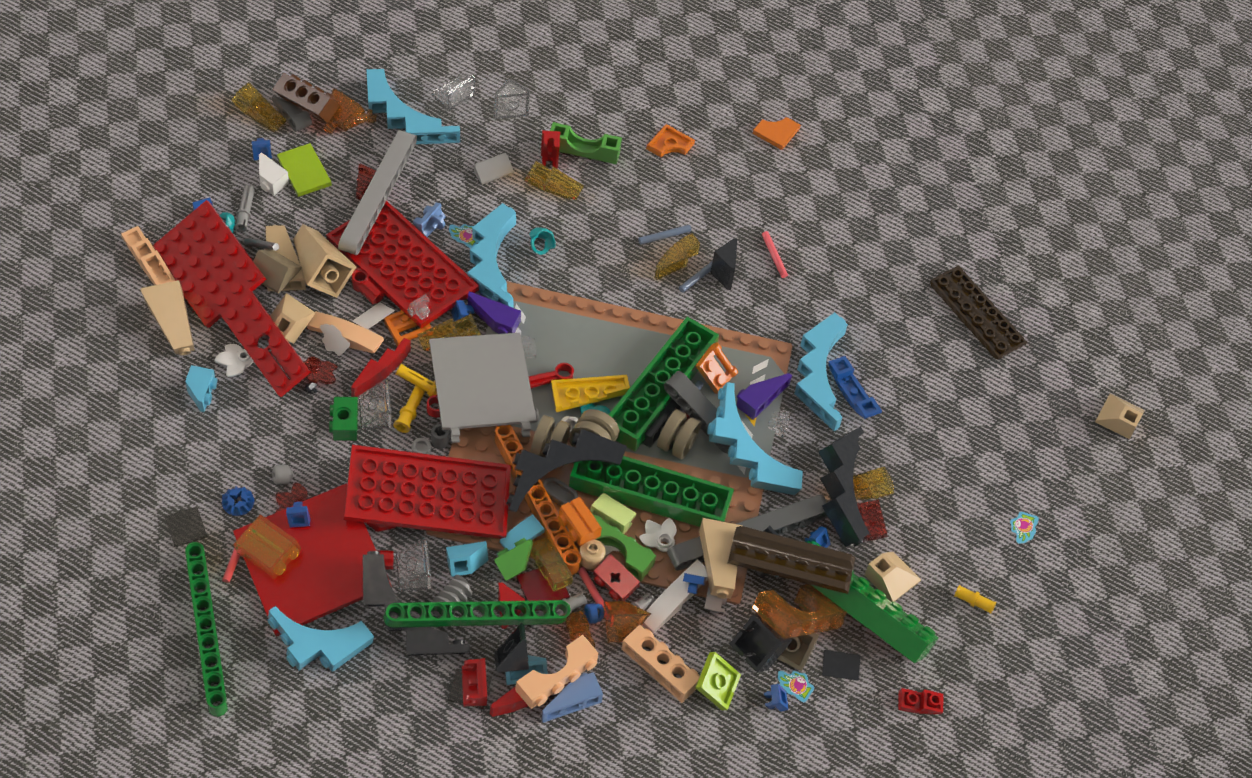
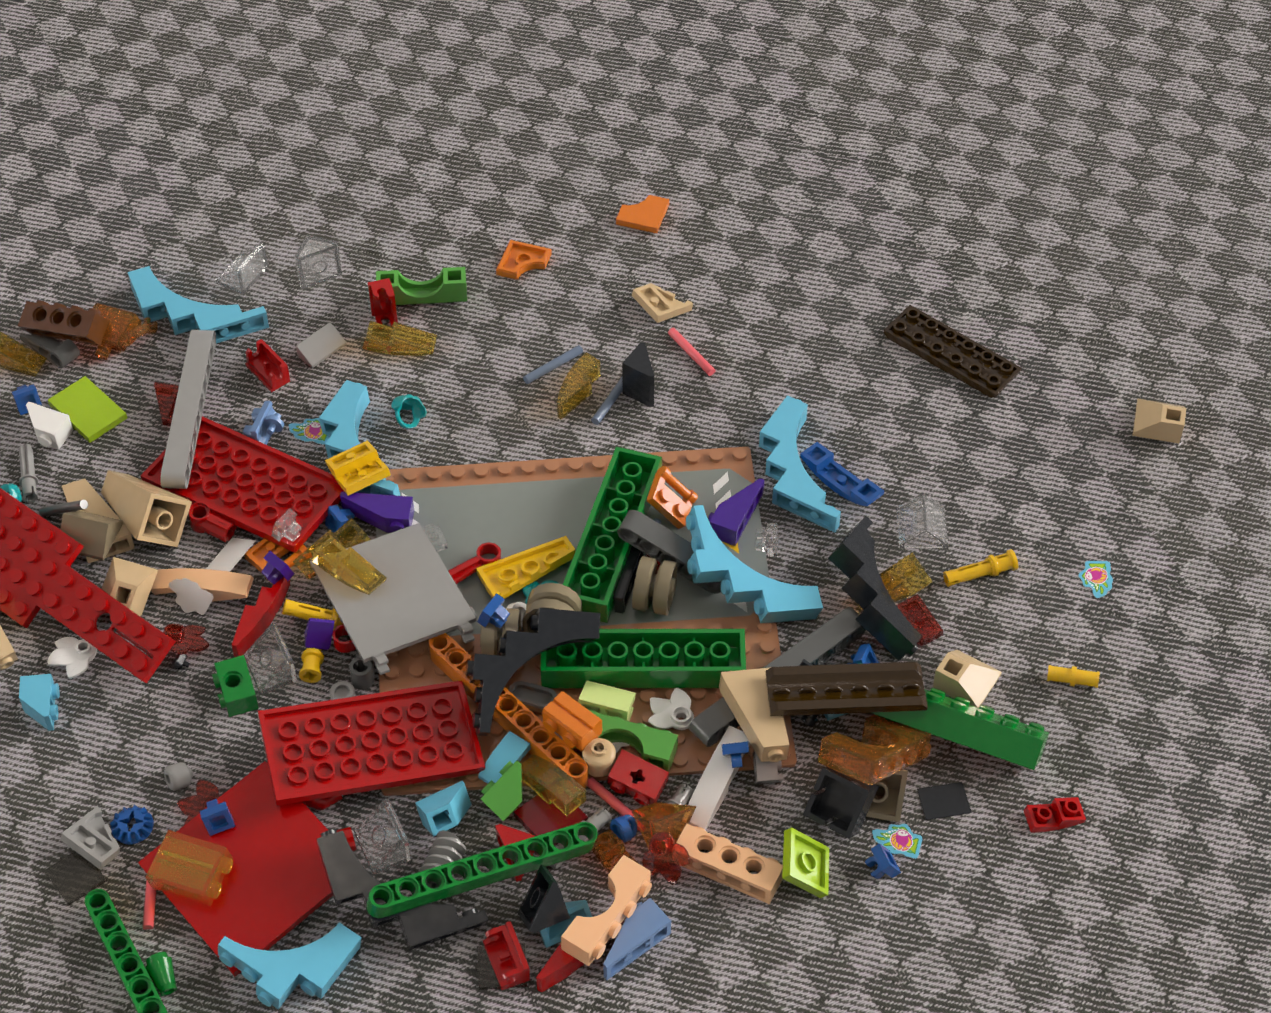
camera: 10 degrees left, 5 degrees down
(206, 503) = (92, 839): none -> light grey wing
(224, 616) = (161, 972): none -> green cone
(401, 338) = (276, 569): none -> dark purple tile
(417, 397) = (319, 633): none -> dark purple slope
(448, 174) = (267, 366): none -> red hinge
(454, 352) = (347, 566): none -> clear yellow slope
(487, 276) = (357, 467): none -> yellow slope
(548, 422) = (494, 613): none -> blue tile
(614, 646) = (666, 860): none -> clear red plate
(763, 208) = (660, 303): none -> tan wing
(903, 444) = (922, 523): none -> clear slope
(945, 493) = (990, 566): none -> yellow pin

